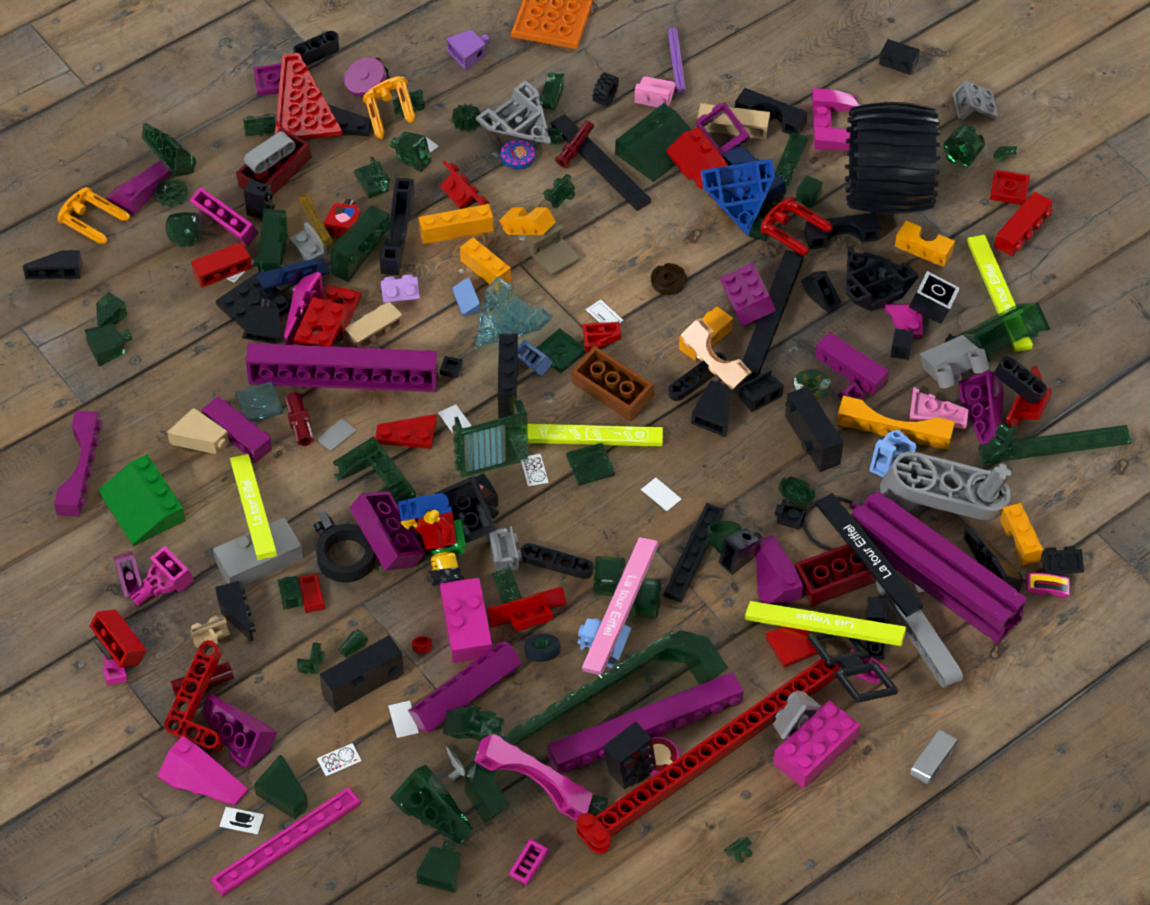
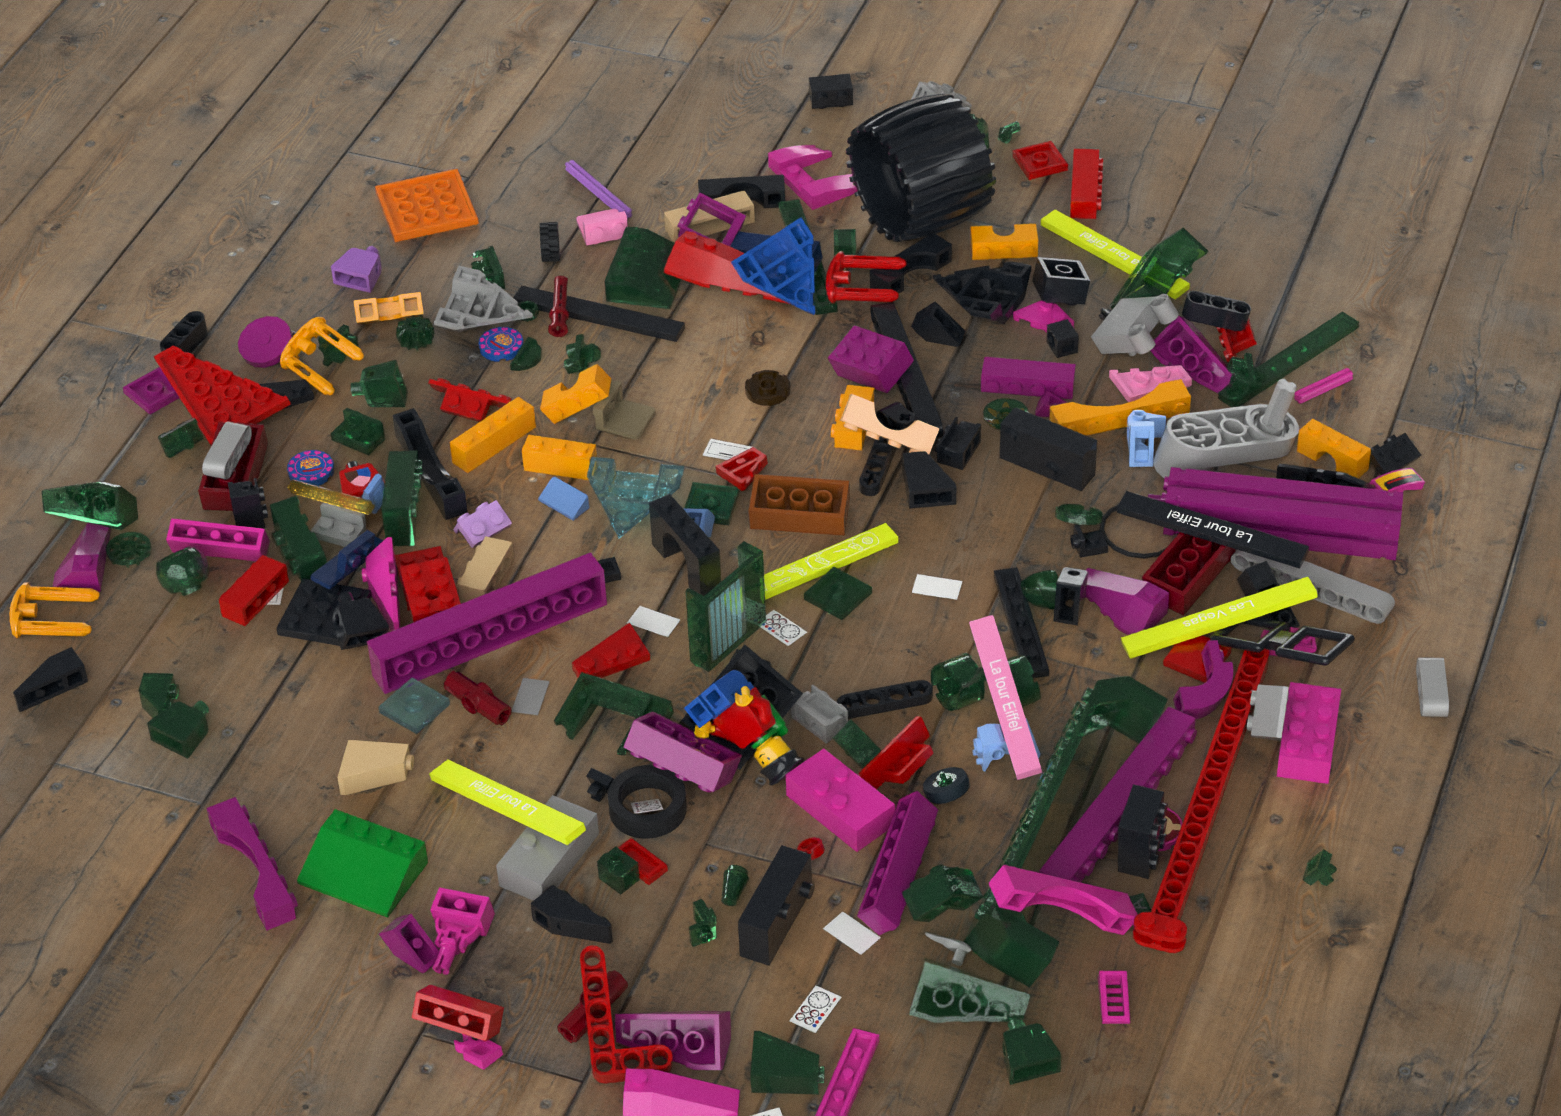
camera: 30 degrees left, 10 degrees down
(212, 631) = (561, 952): tan hips -> none
(241, 432) = (426, 741): magenta brick -> none
(325, 189) = (311, 467): none -> blue tile
(337, 231) = (374, 492): none -> medium blue slope
(341, 556) = (645, 806): none -> white sticker
(461, 89) = (389, 308): none -> light orange arch
(529, 172) = (528, 356): none -> clear green tile
(733, 348) = (895, 416): none -> black piece
(769, 679) = (1205, 698): none -> magenta arch
(1061, 478) = (1323, 385): none -> dark pink axle

